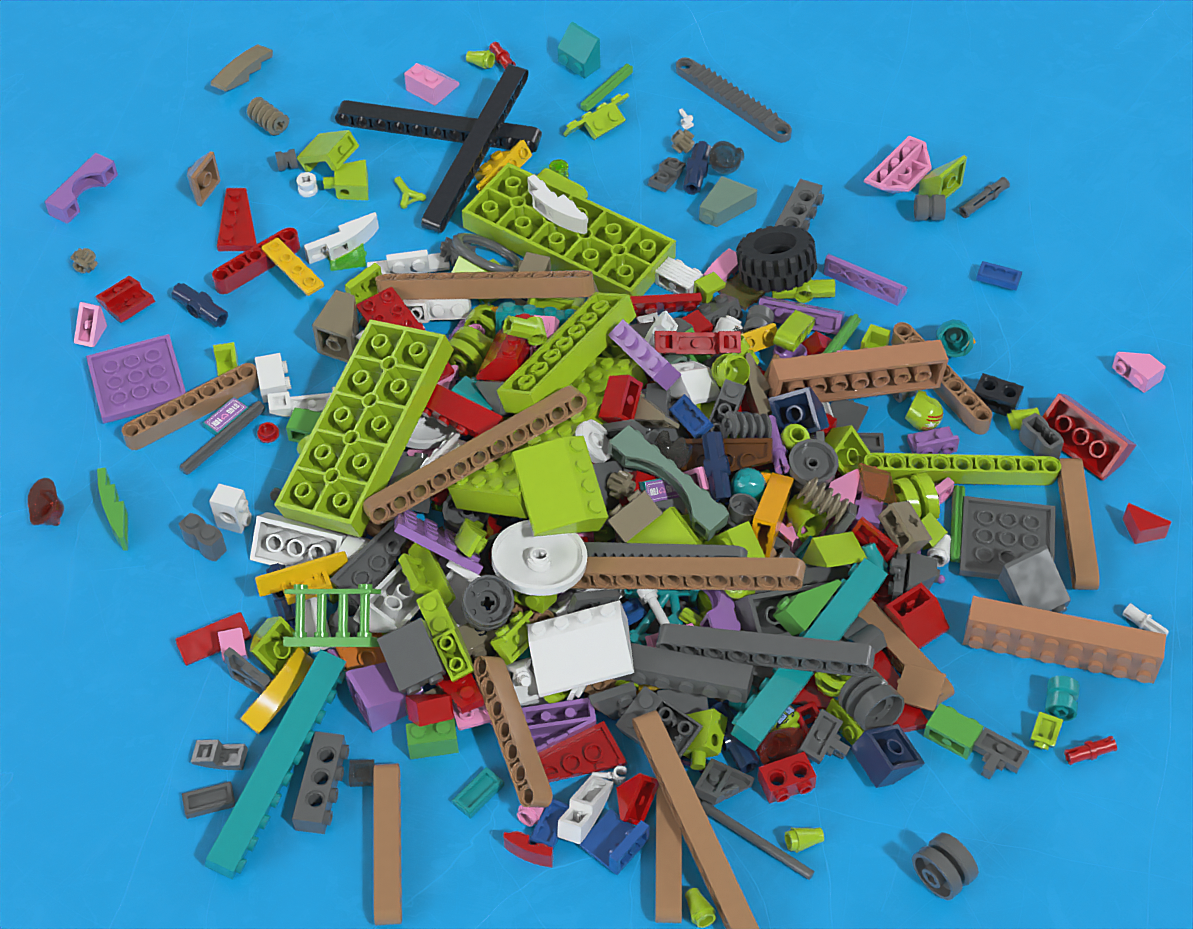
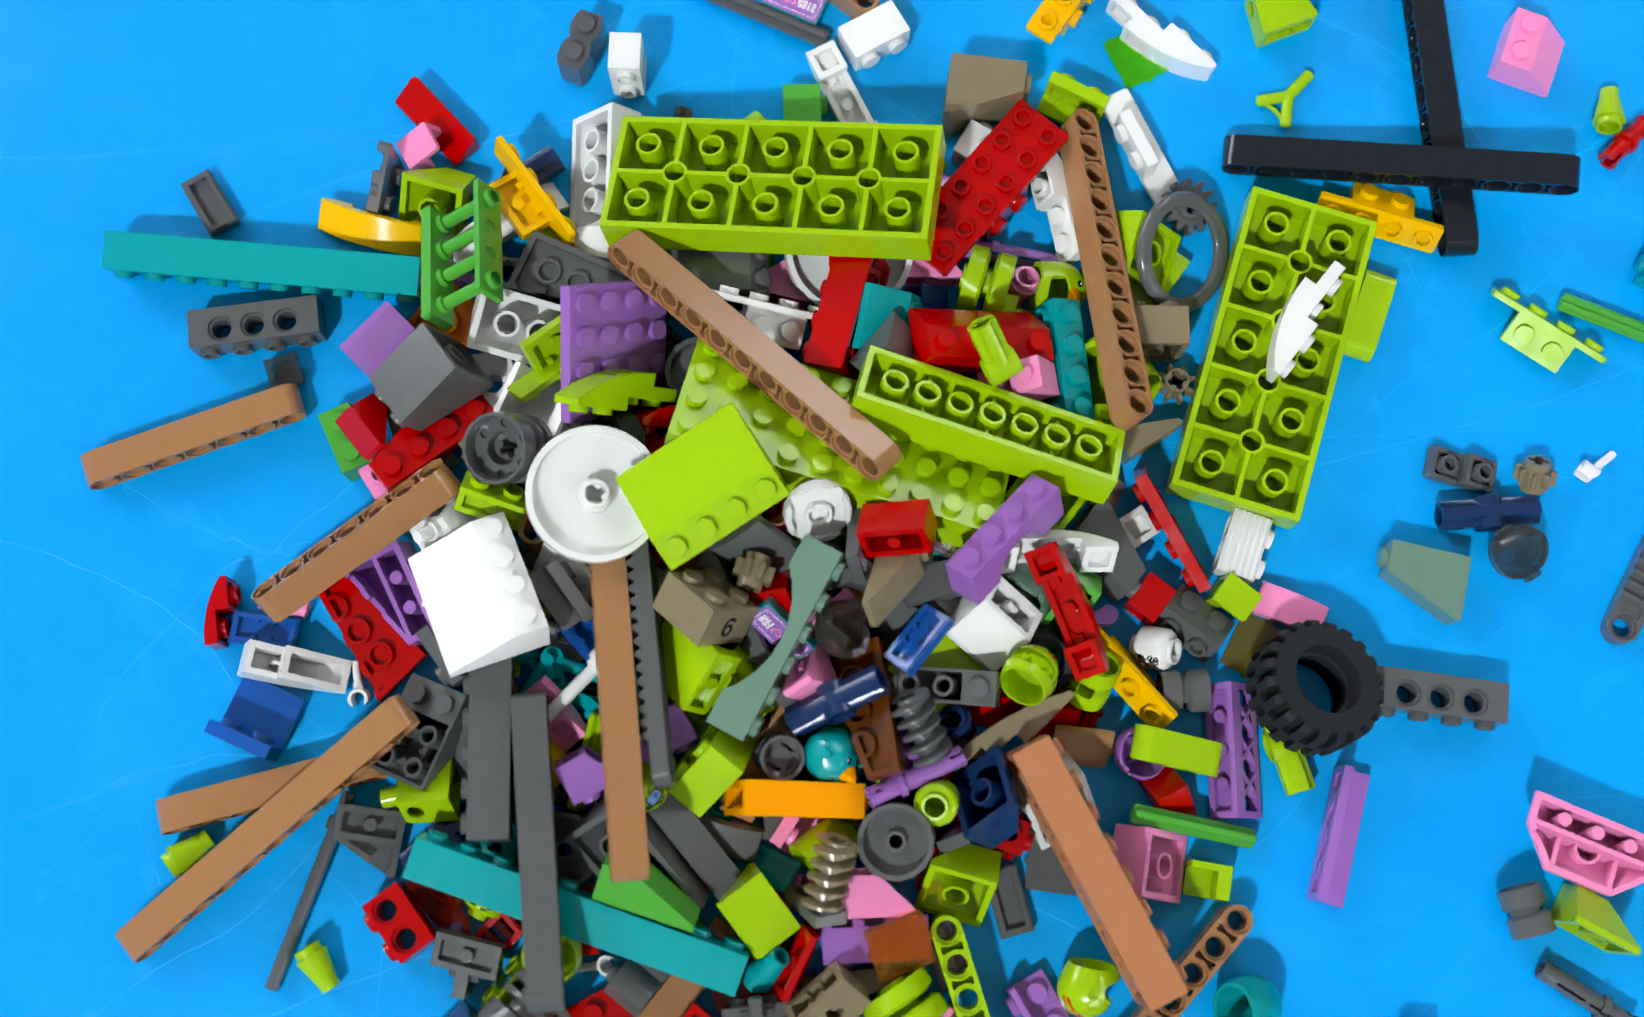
camera: 70 degrees right, 25 degrees up
(218, 756) = (273, 192): dark grey slope -> none
(268, 432) = (781, 66): red plate -> none
(446, 635) = (450, 417): lime slope -> none
(478, 792) = (293, 523): teal tile -> none
(560, 167) = (1401, 311): clear neon green wheel -> none
(636, 797) = (315, 727): red slope -> none

